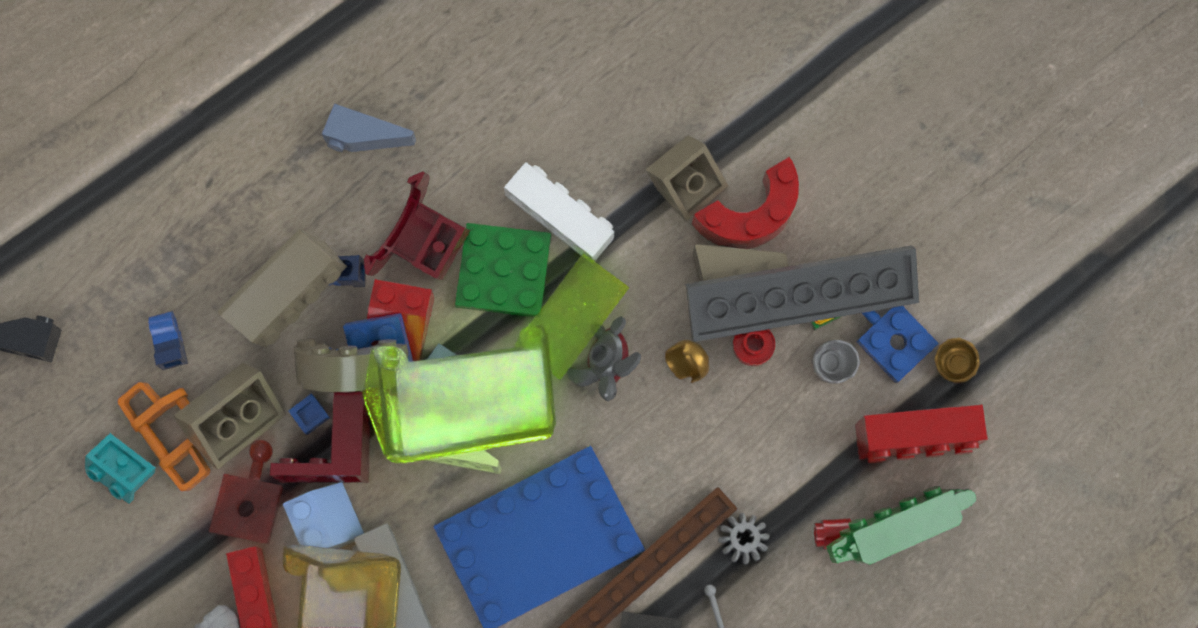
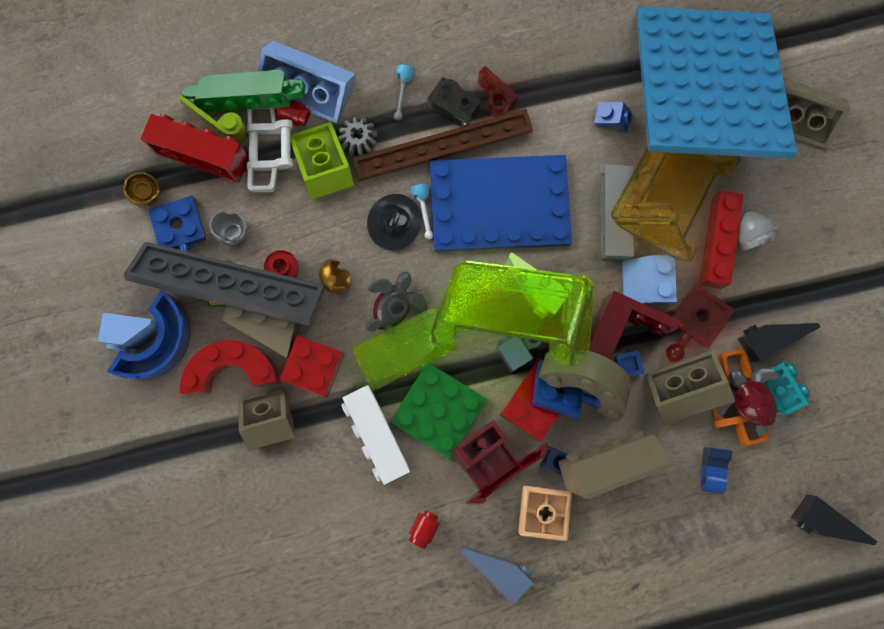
camera: 155 degrees left, 5 degrees up
(149, 432) = (754, 399): none -> dark red animal
(154, 516) = (768, 339): none -> black slope
(322, 208) = (556, 524): none -> light nougat brick
(462, 139) = (424, 529): none -> red brick
(637, 504) = (421, 193): none -> hinge
(653, 459) = (394, 222): none -> black hat
(663, 251) = (312, 366): none -> red brick
(773, 490) = (321, 160): none -> lime slope
(818, 586) = (326, 84): none -> light blue slope
(829, 205) = (167, 348): none -> blue brick
(847, 450) = (276, 127): none -> white bar
(883, 198) = (126, 332): none -> light blue slope
(897, 479) = (228, 125): none -> lime door

